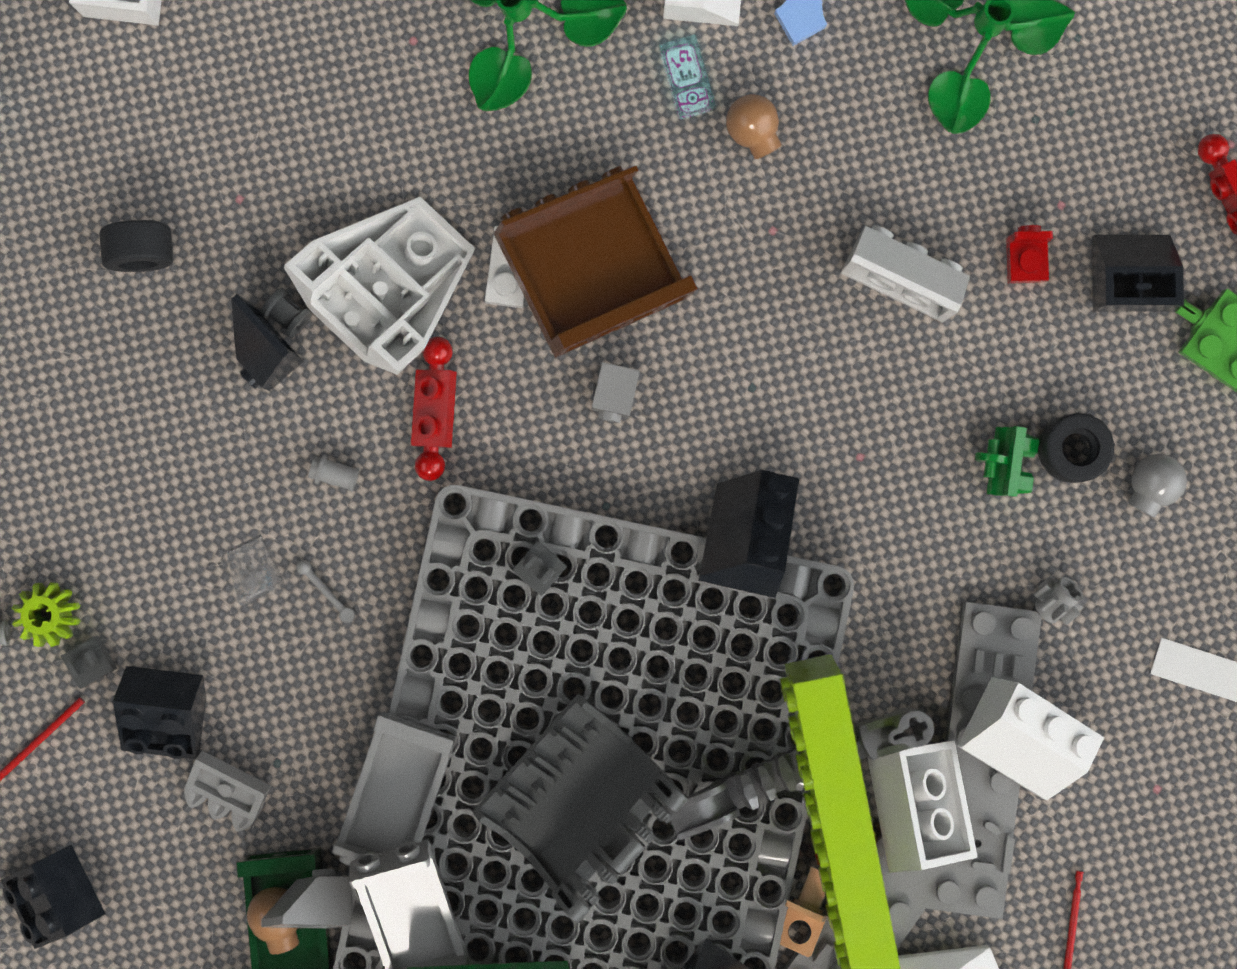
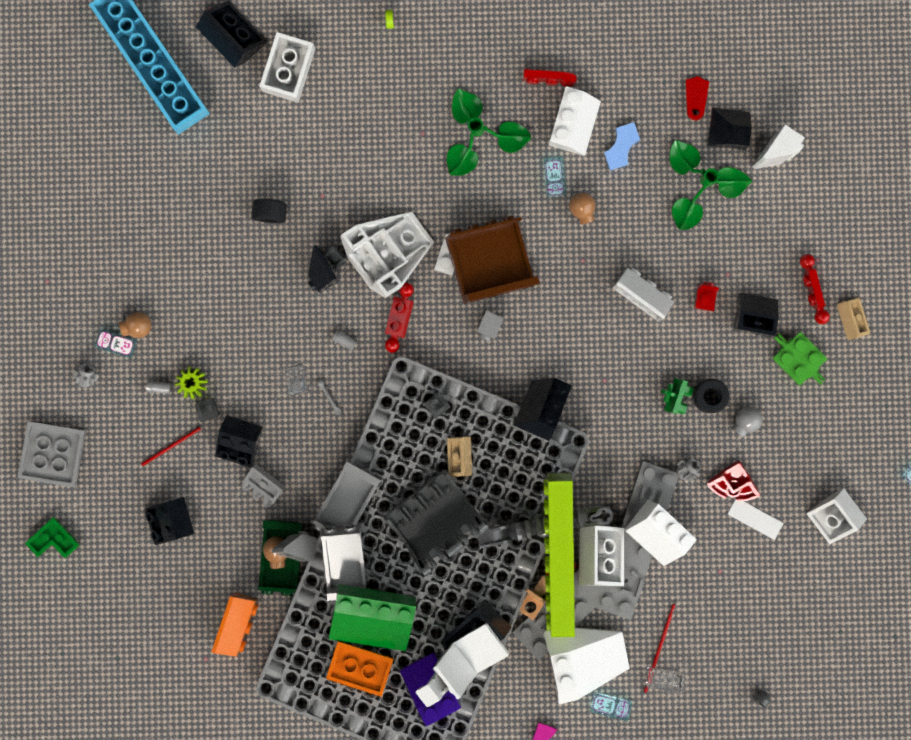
camera: 15 degrees right, 0 degrees up
(603, 661) = (459, 456): none -> tan slope
(1153, 610) = (734, 482): none -> brick

